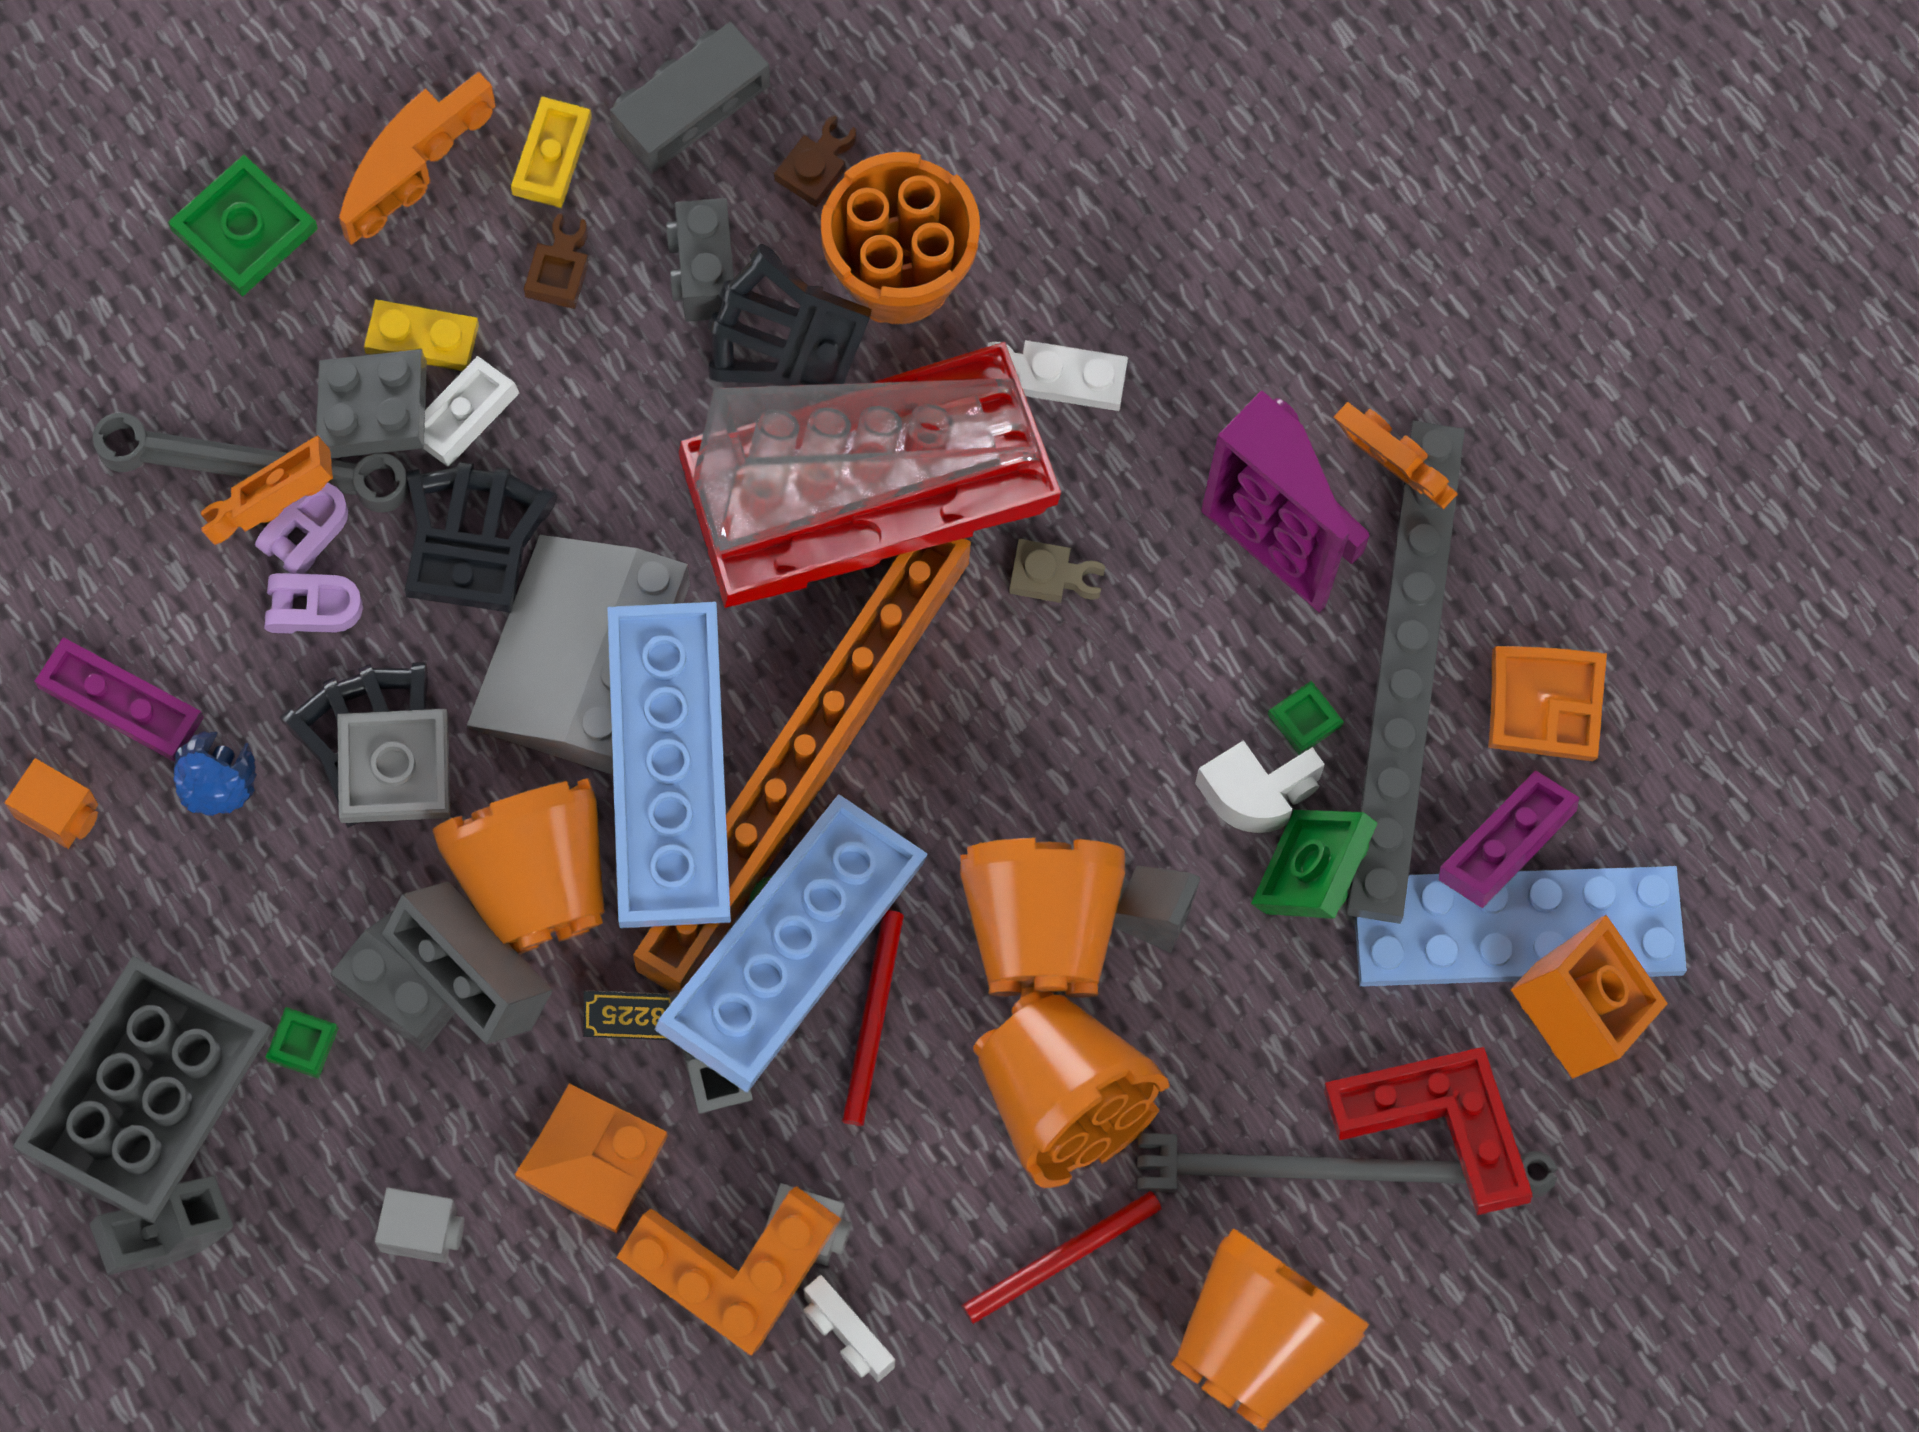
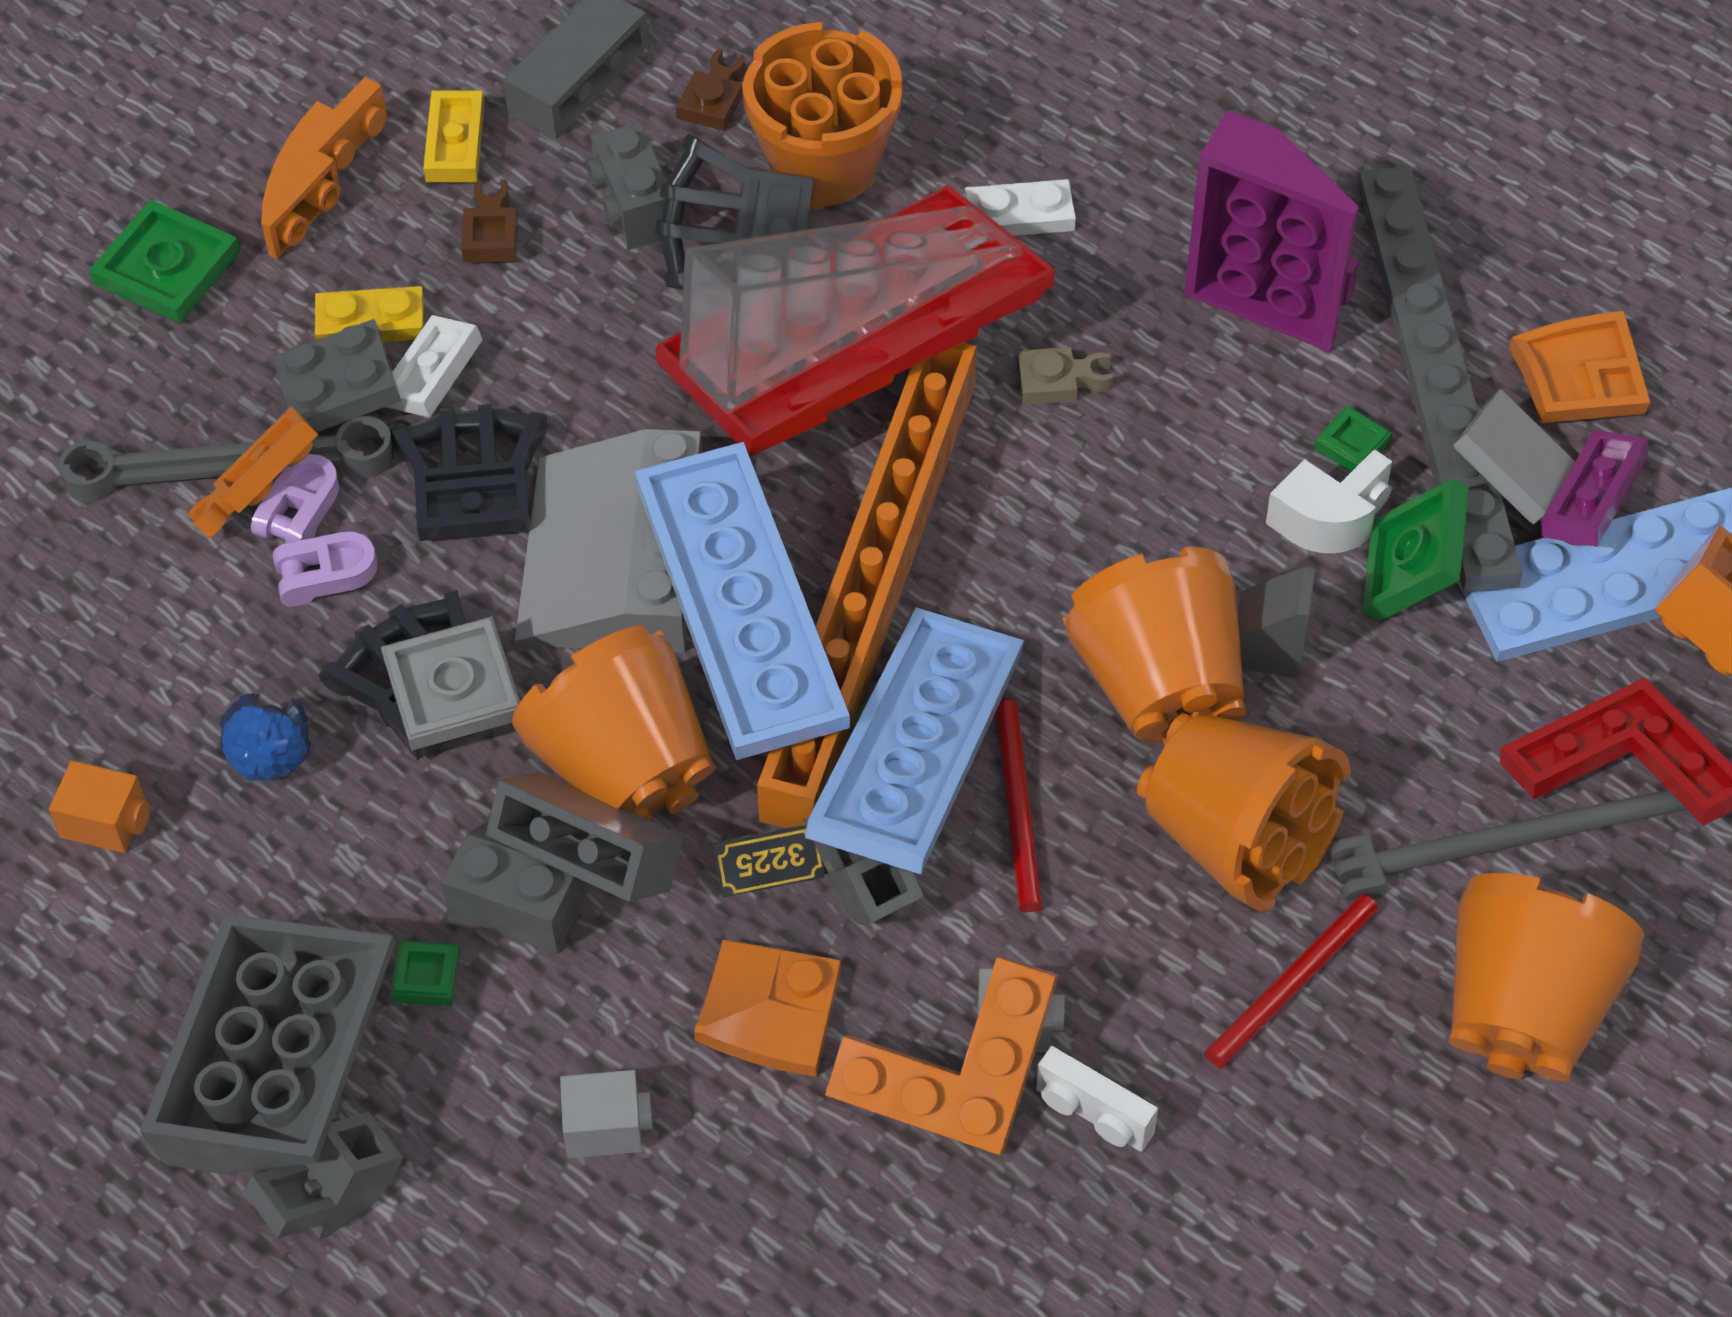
camera: 10 degrees left, 15 degrees down
(118, 699) = (144, 697): magenta plate -> none
(1400, 457) = (1376, 194): orange plate -> none
(1443, 787) = (1515, 456): none -> light grey tile

